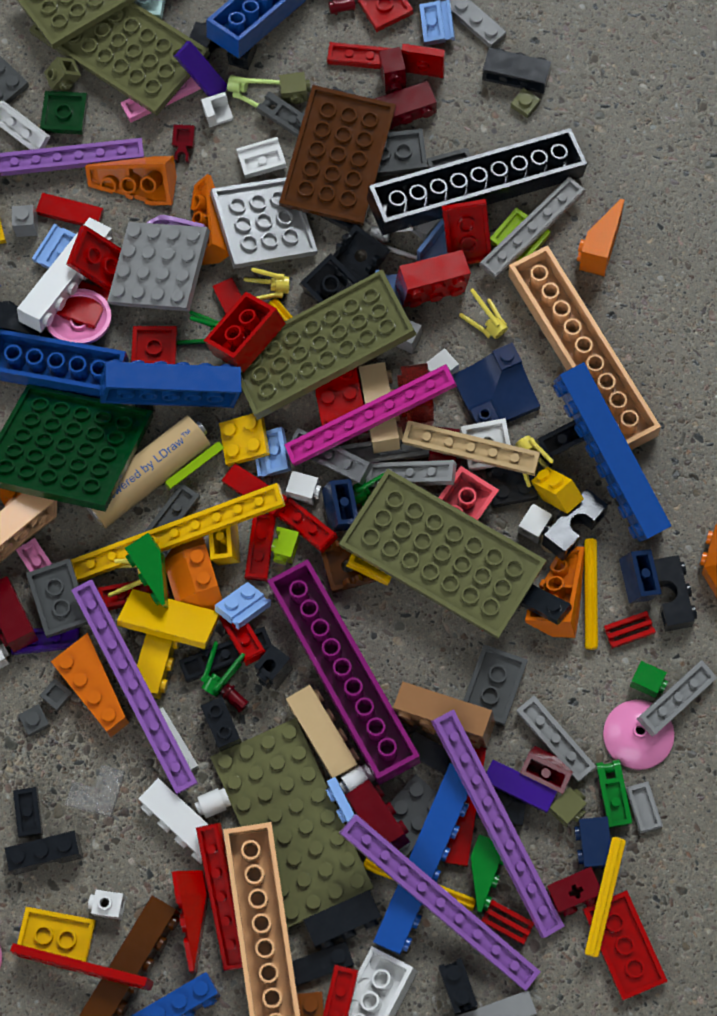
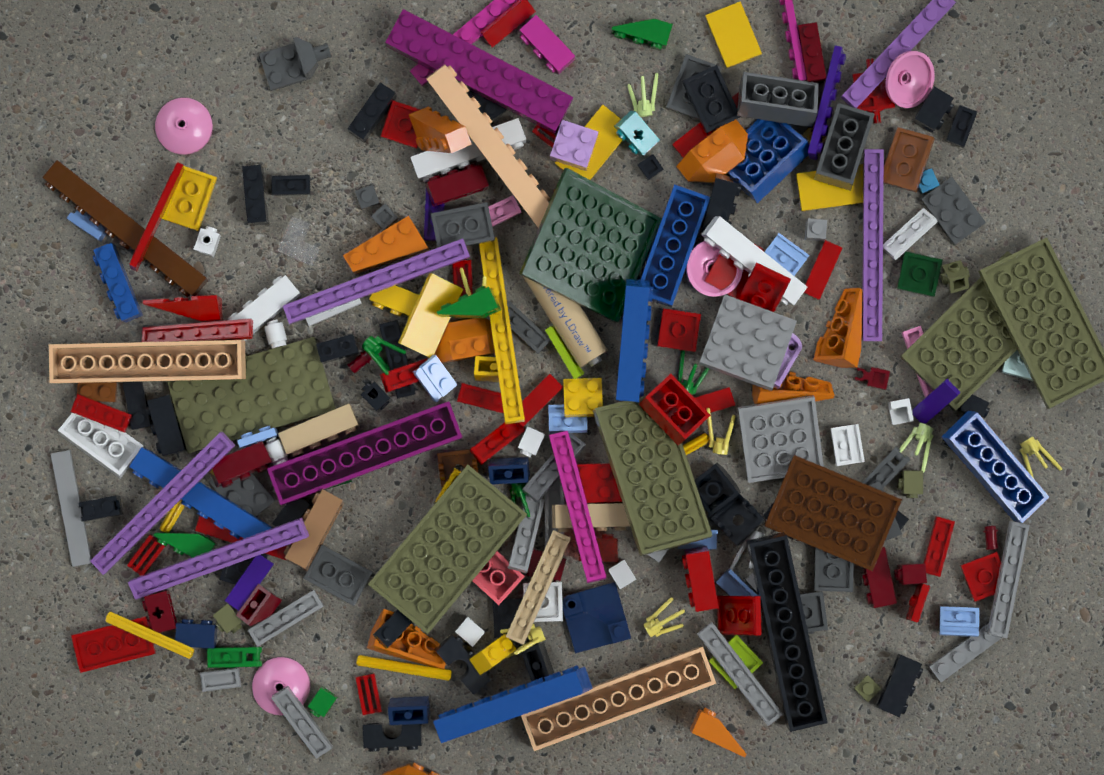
camera: 90 degrees right, 15 degrees up
(285, 545) = (482, 419): lime brick -> none

